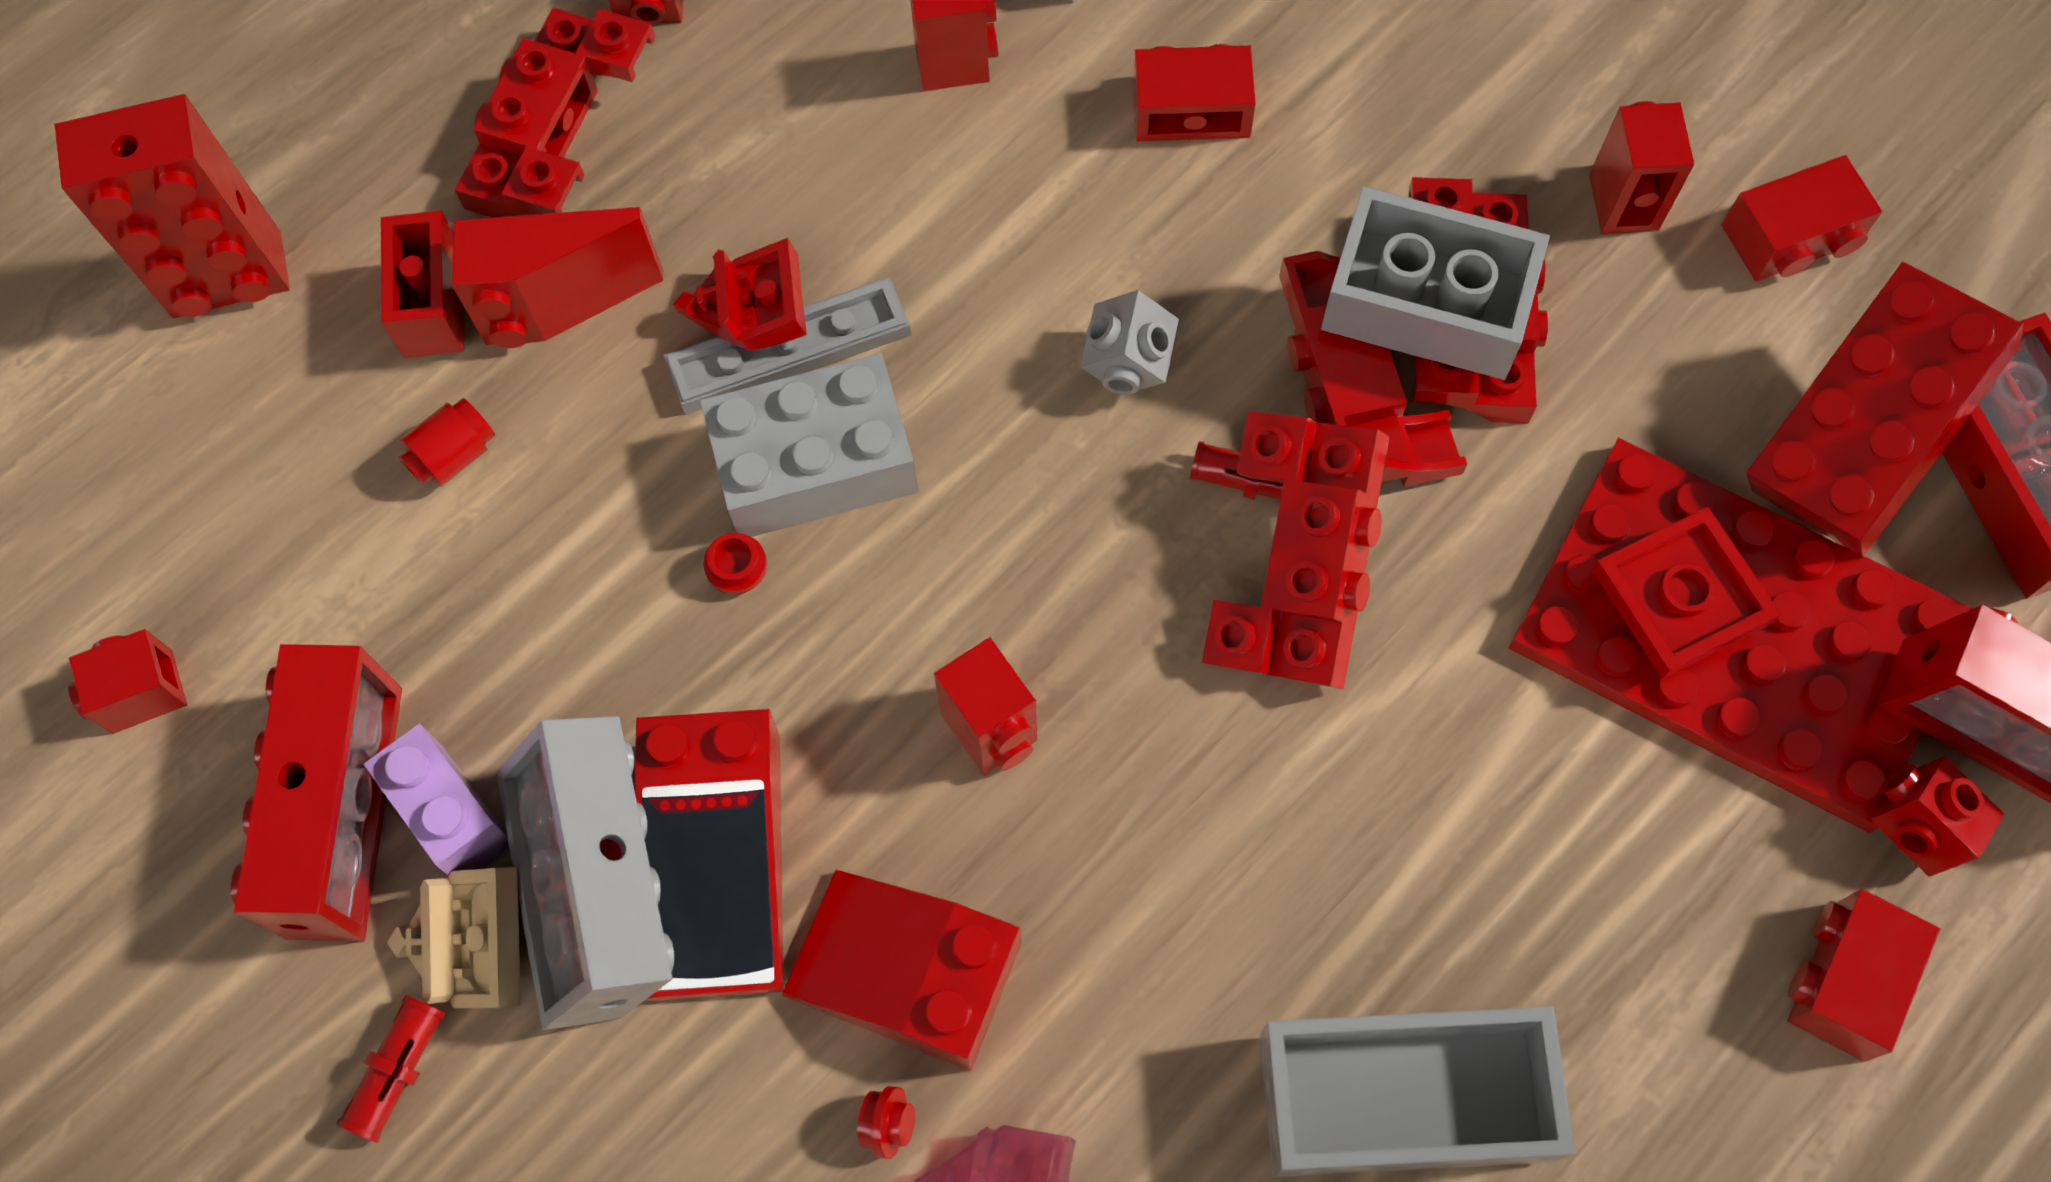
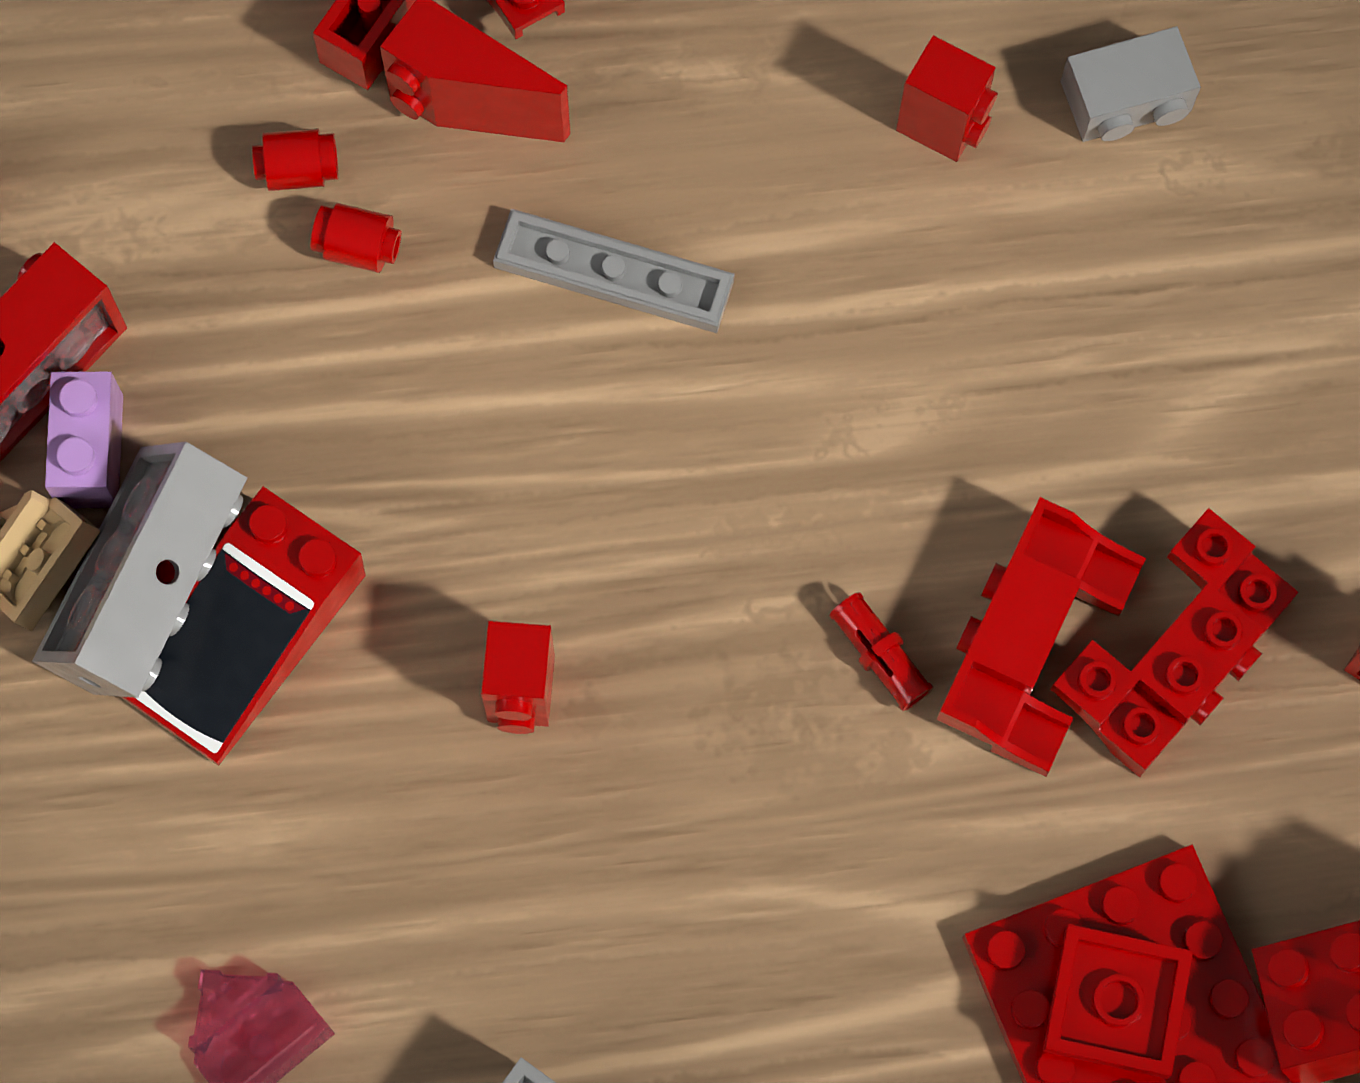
camera: 35 degrees right, 5 degrees up
(548, 467) = (355, 237): none -> red brick
(735, 563) = (434, 418): red plate -> none
(751, 299) = (613, 212): red slope -> none
(810, 446) = (558, 368): light grey brick -> none
(885, 1121) = (213, 913): red plate -> none
(905, 966) = (314, 817): red slope -> none
(1129, 343) = (867, 473): light grey brick -> none
(1193, 93) = (1104, 298): red brick -> none
(1316, 551) = (860, 749): red bracket -> none
(1435, 282) = (1123, 610): light grey brick -> none

